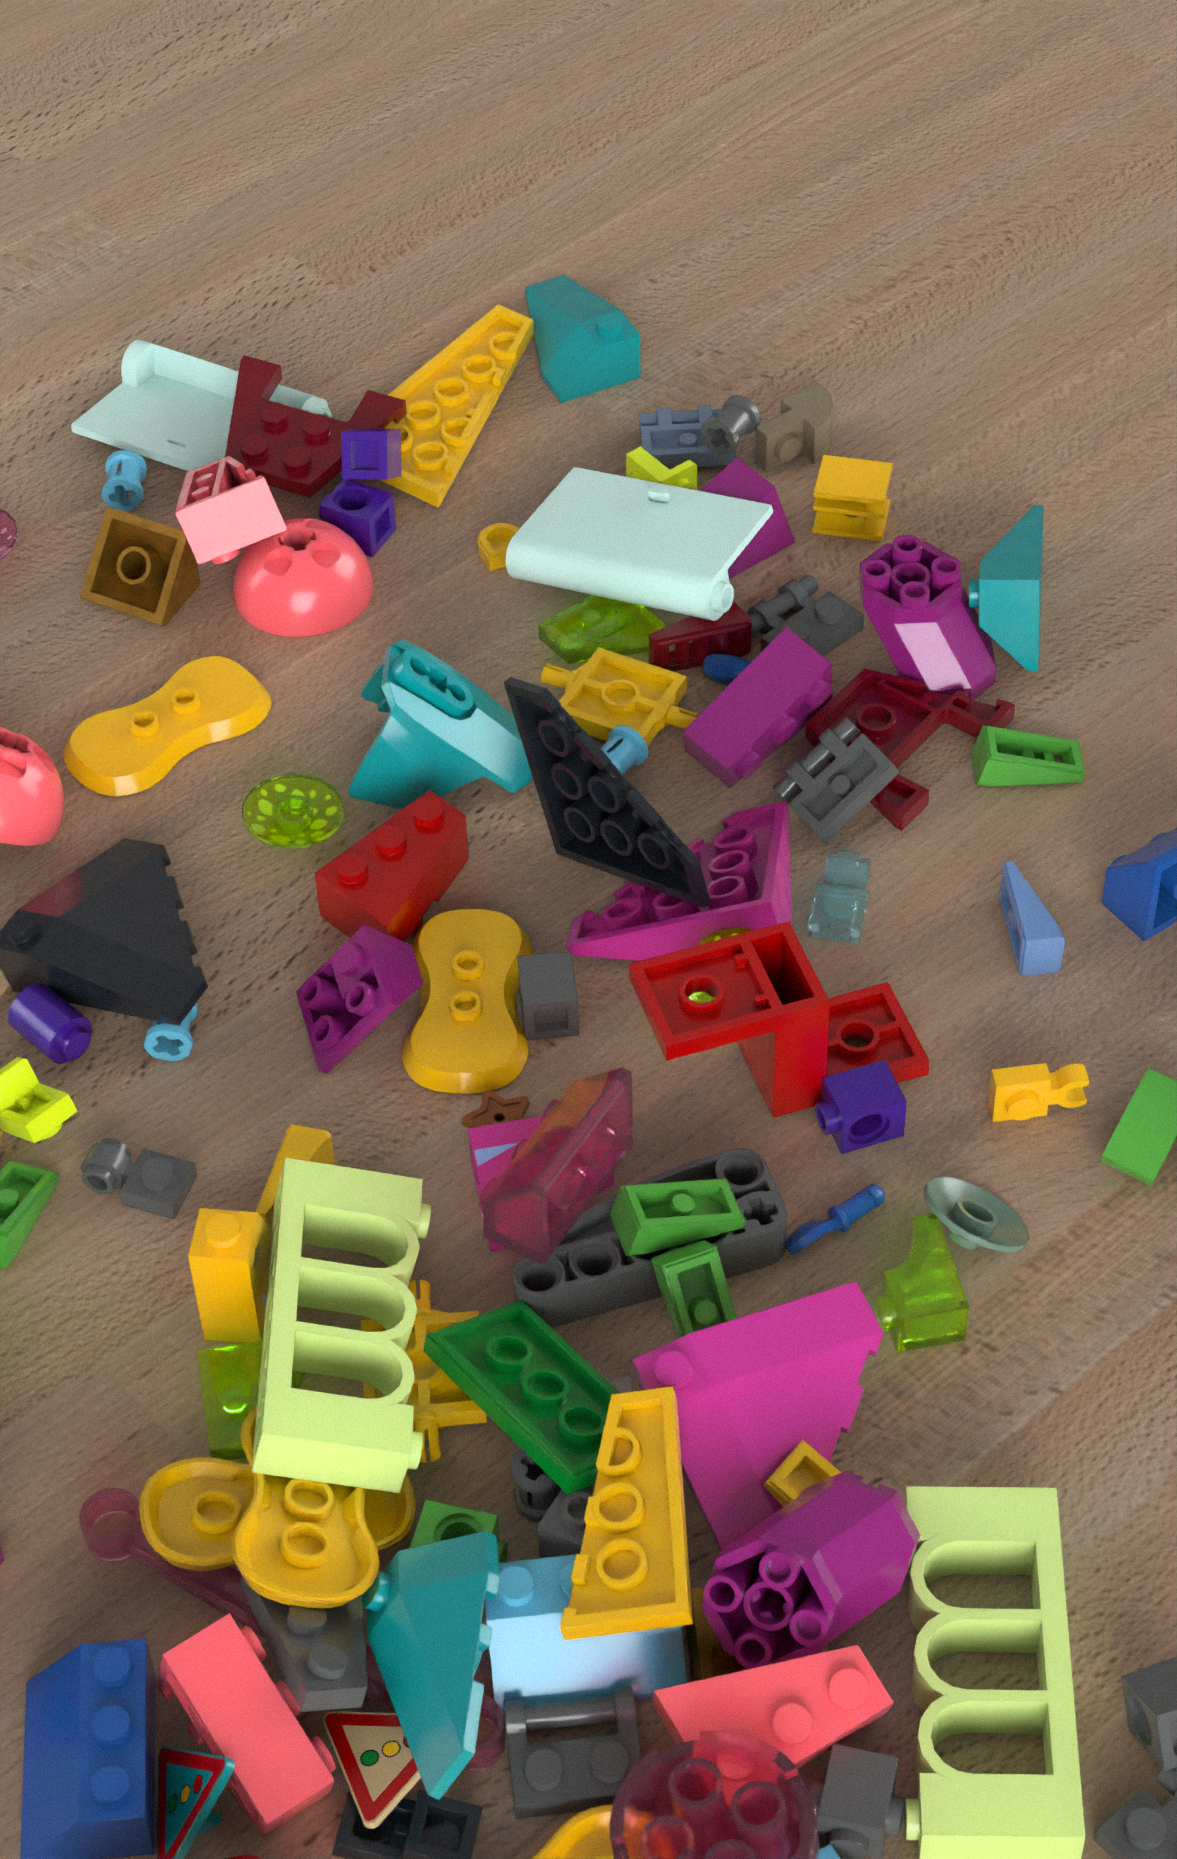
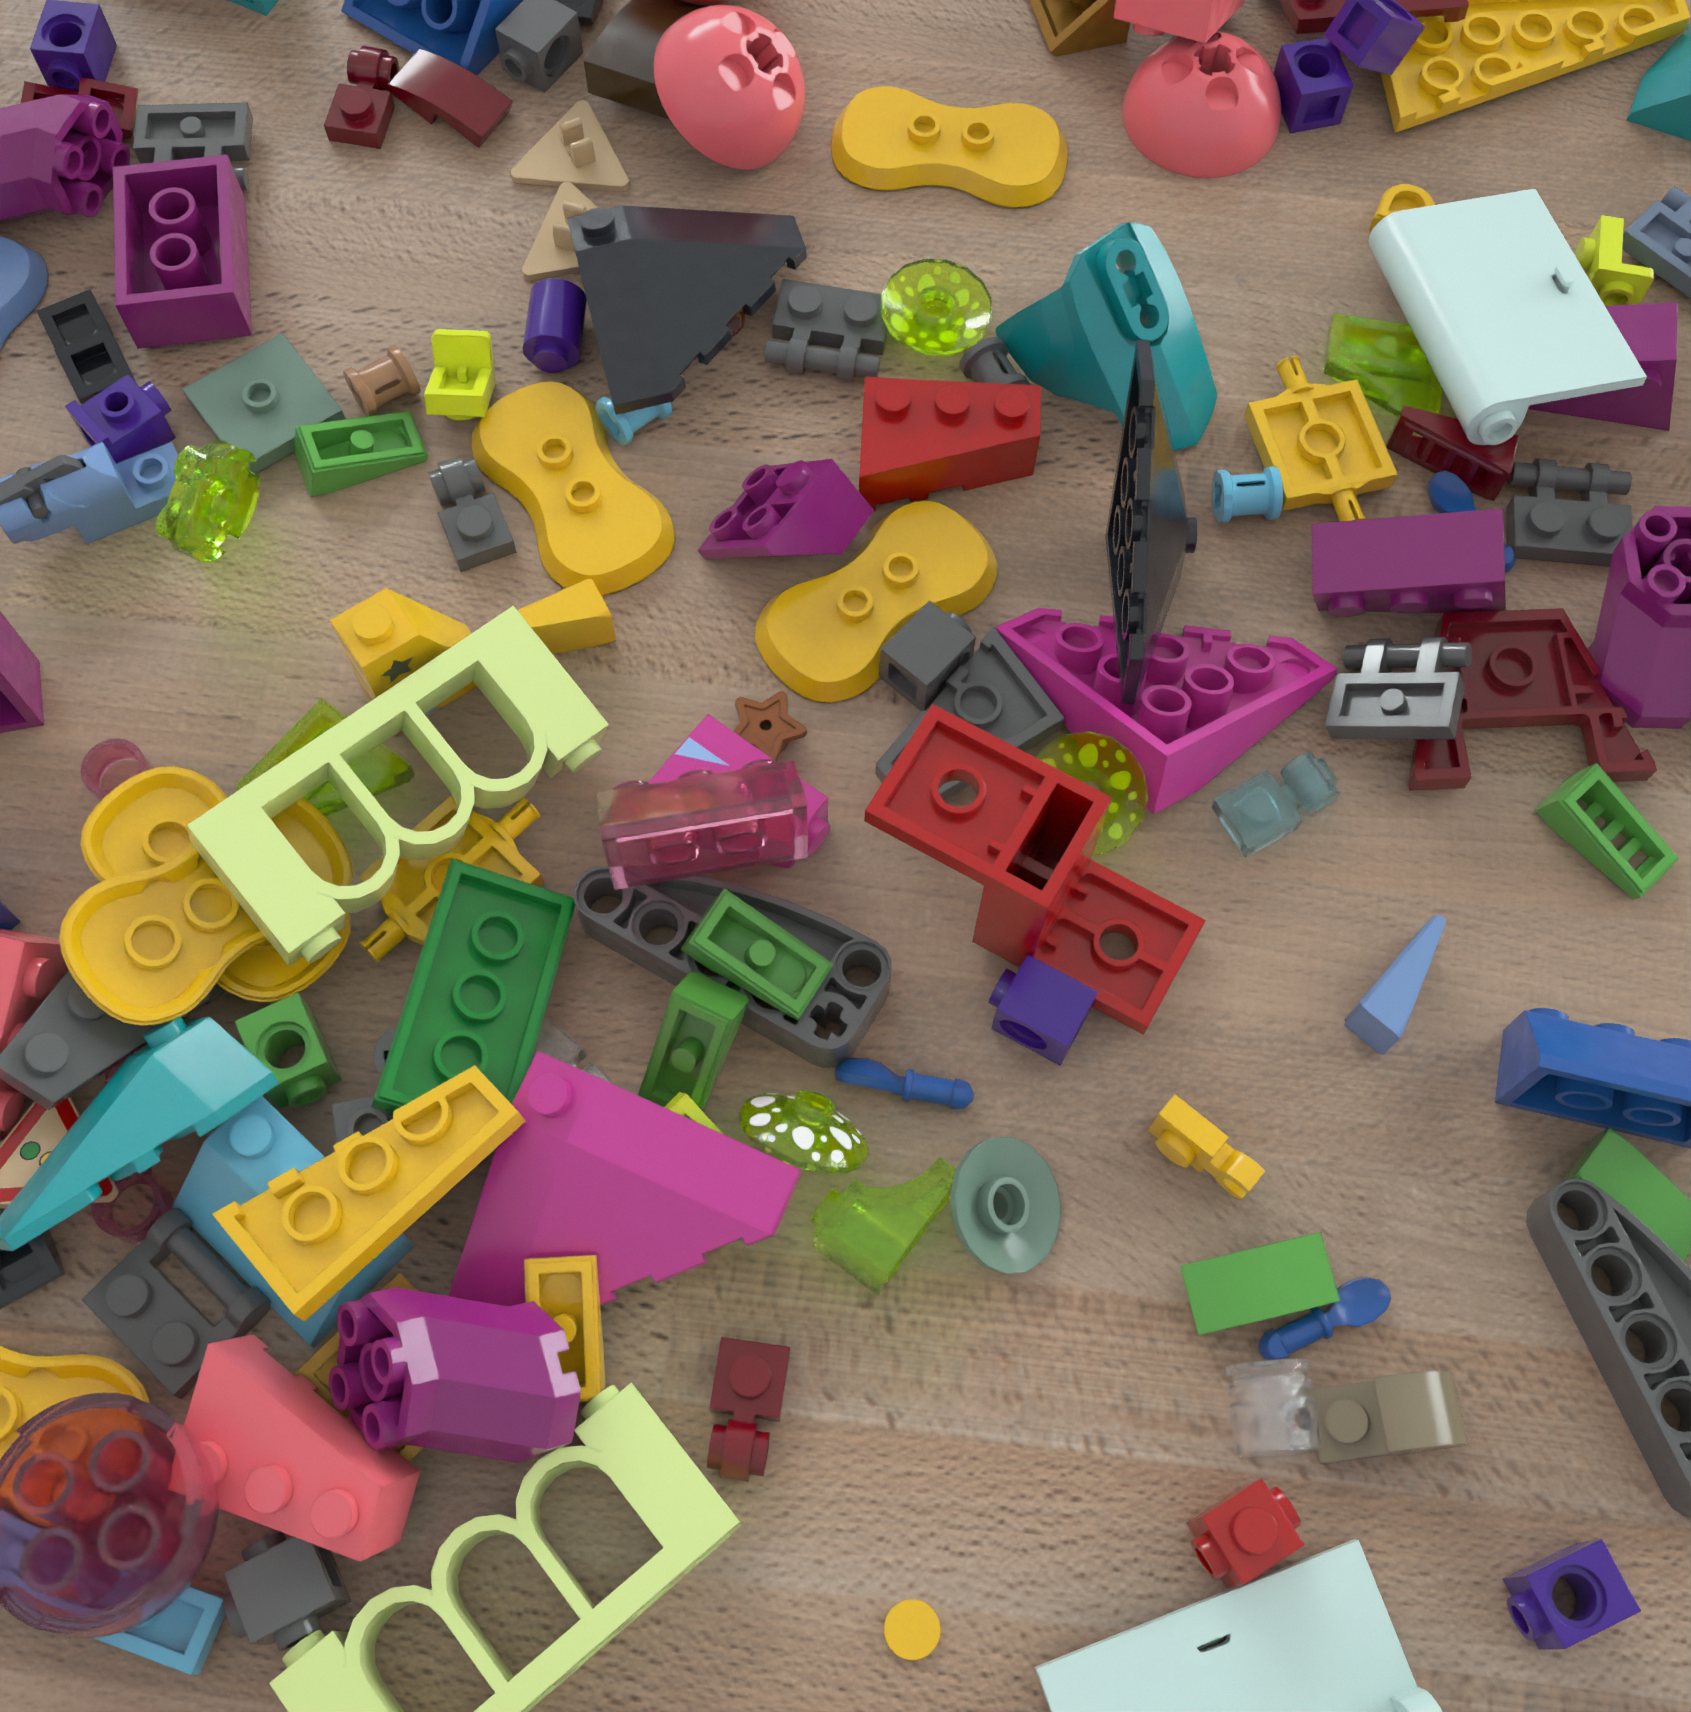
camera: 45 degrees right, 20 degrees up
(220, 1114) = (585, 511): none -> yellow plate
(235, 883) = (829, 319): none -> dark grey plate
(370, 814) = (987, 368): none -> dark grey bush
(613, 1015) = (994, 695): none -> dark grey wing
(819, 1273) = (804, 1131): none -> clear neon green dish
(966, 1446) = (750, 1387): none -> dark red plate

